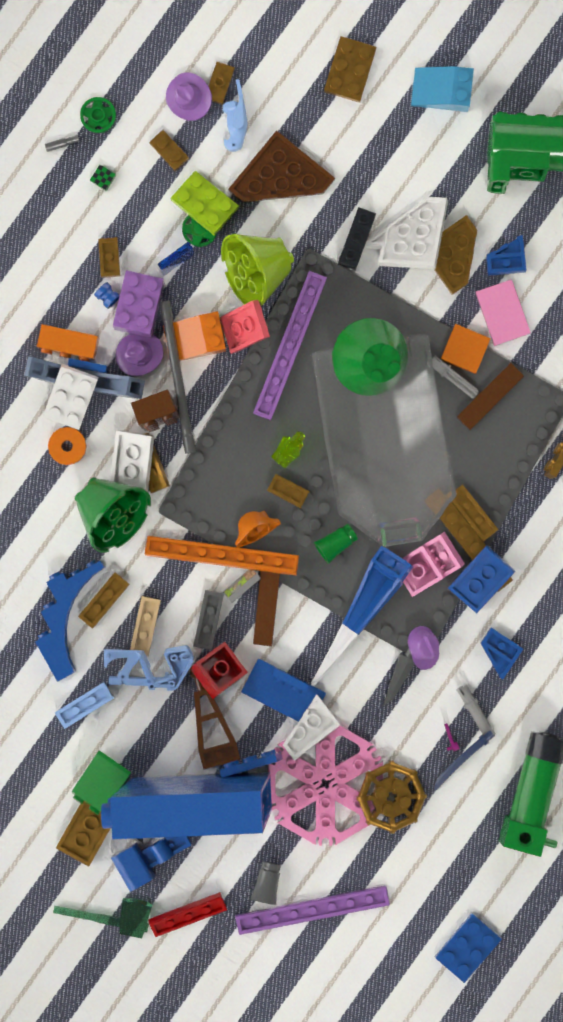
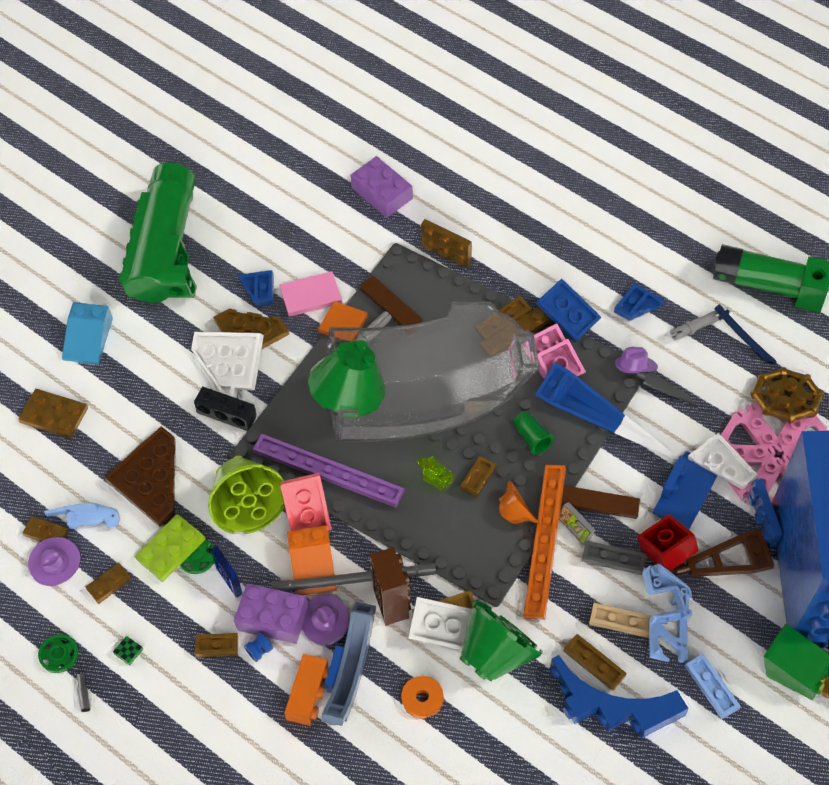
camera: 85 degrees left, 30 degrees down
(70, 396) = (368, 685): white plate -> none
(454, 745) = (722, 347): magenta piece -> none

